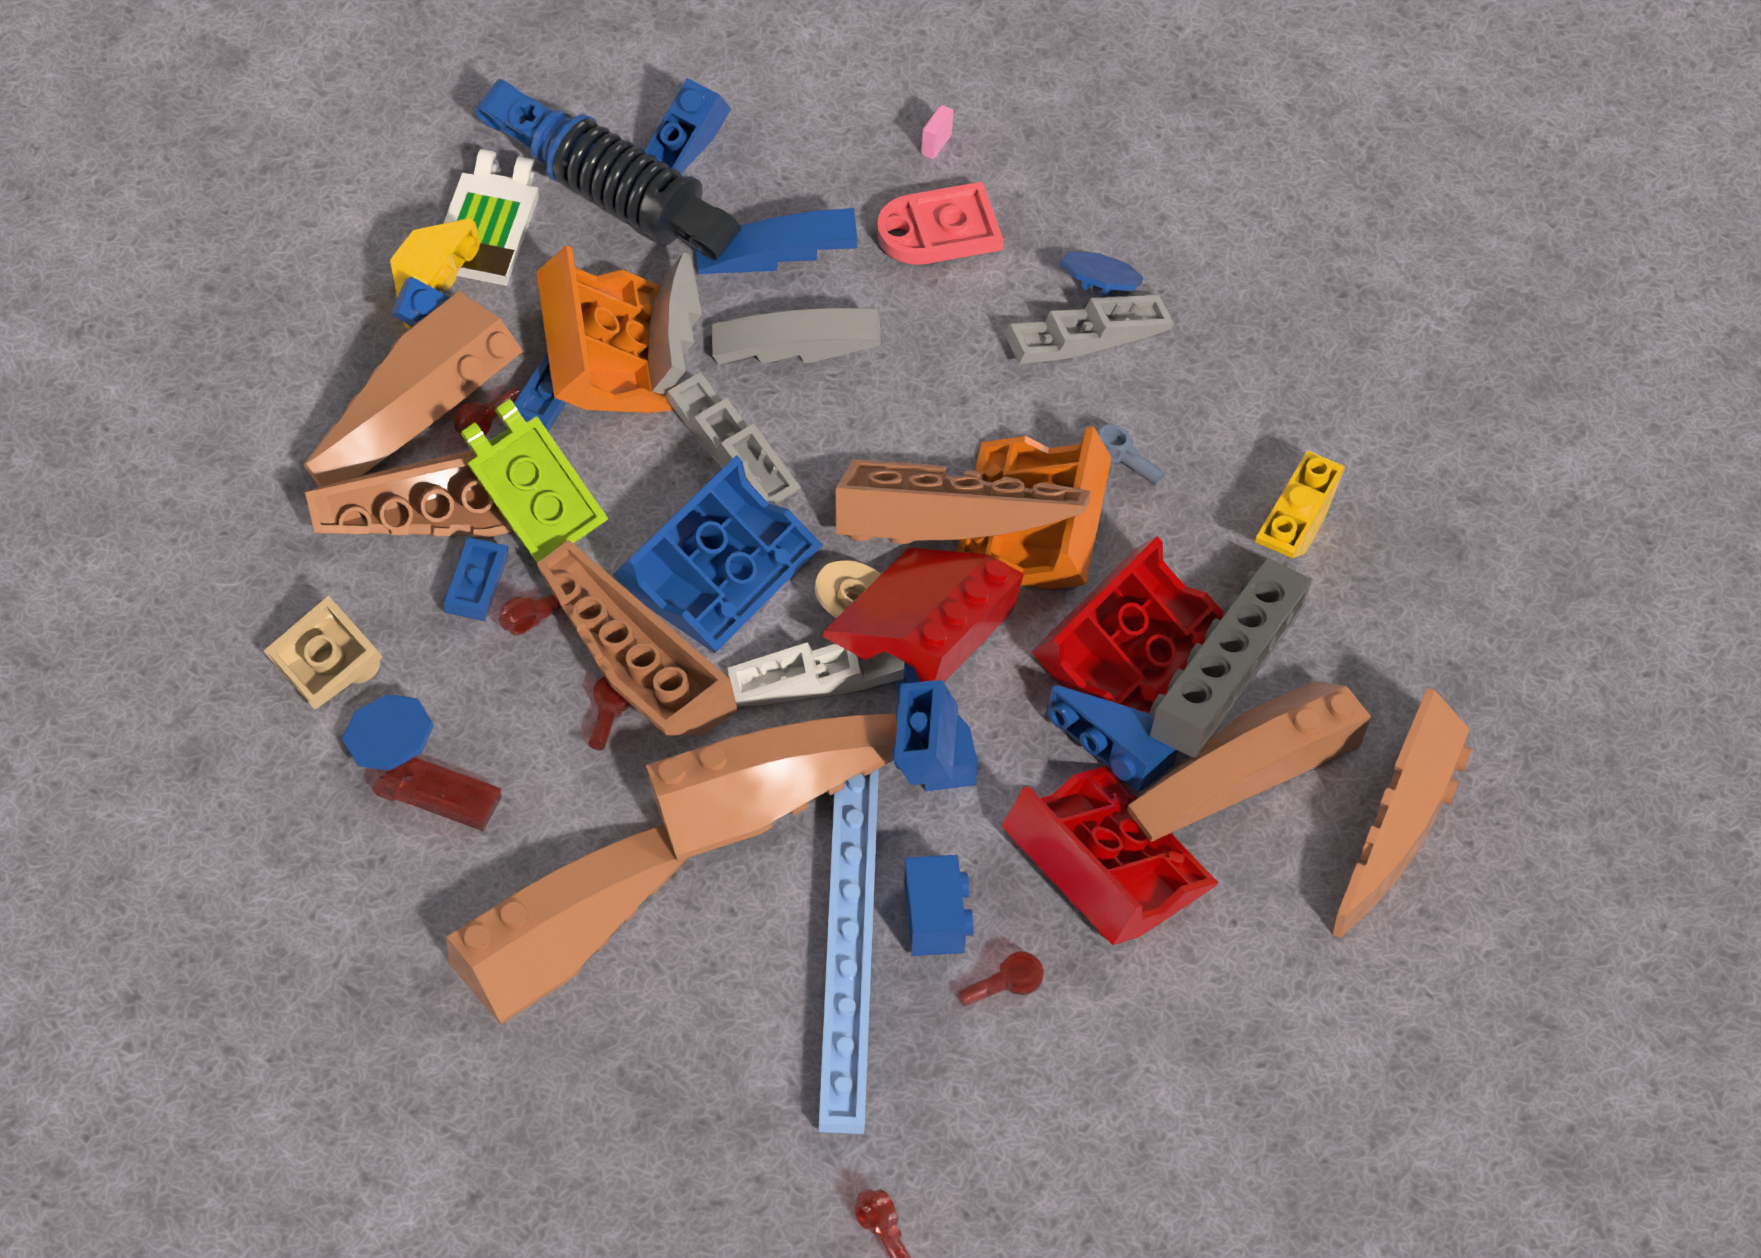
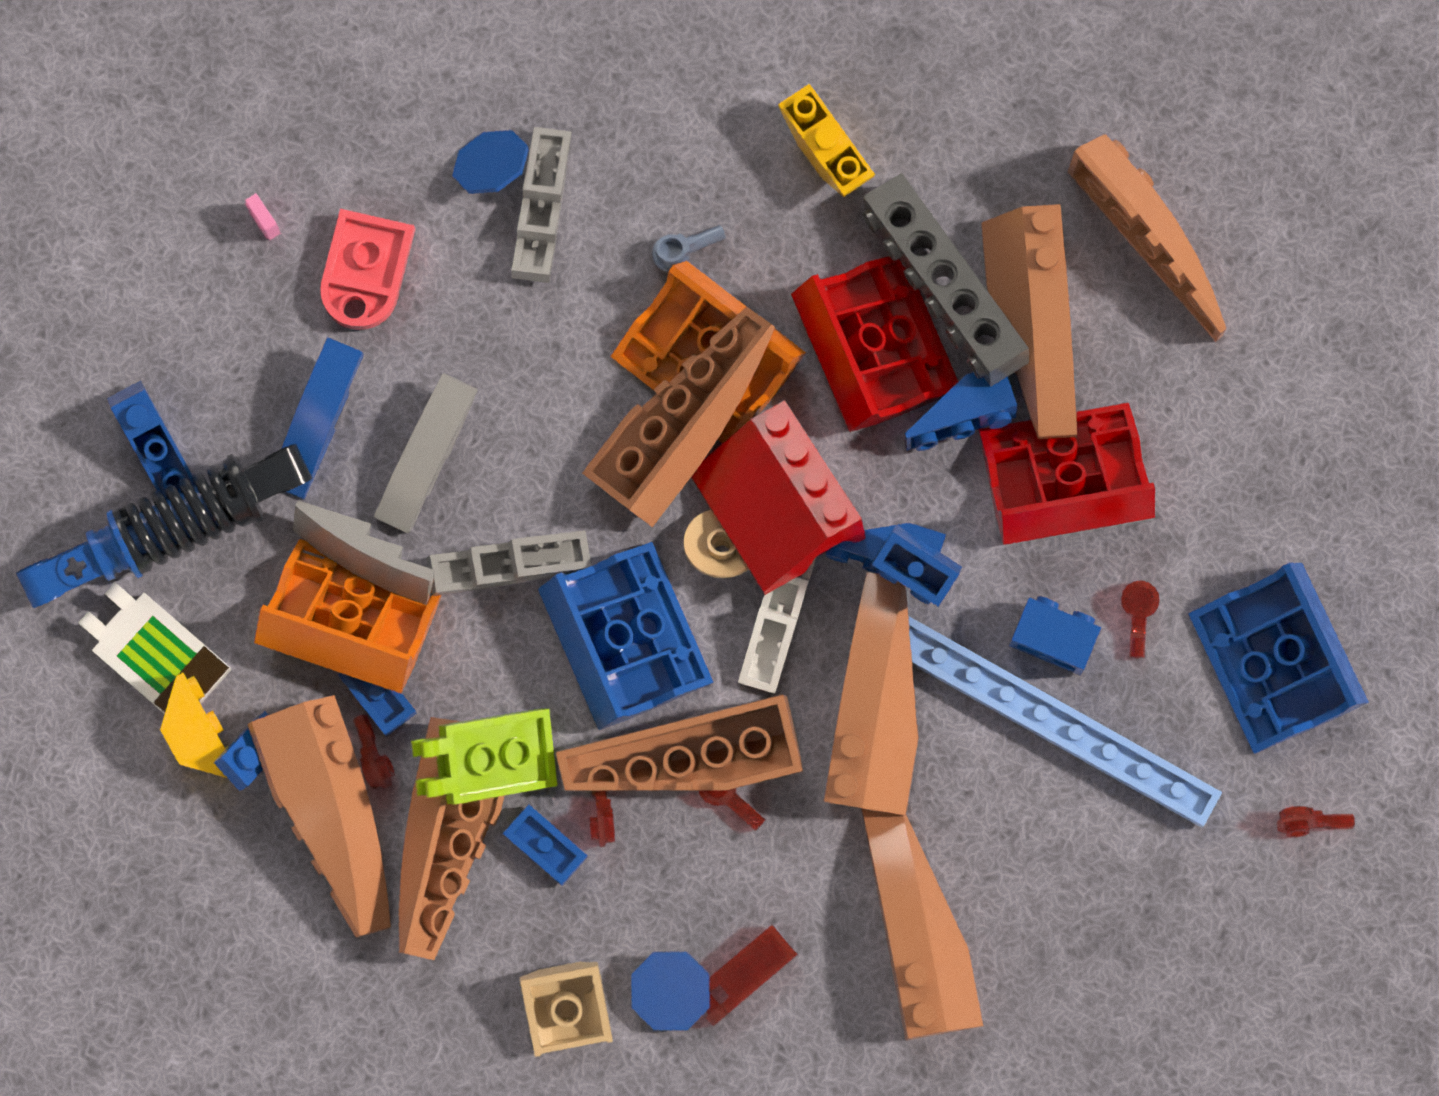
camera: 60 degrees left, 25 degrees up
(1039, 1123) = (1278, 657): none -> blue piece

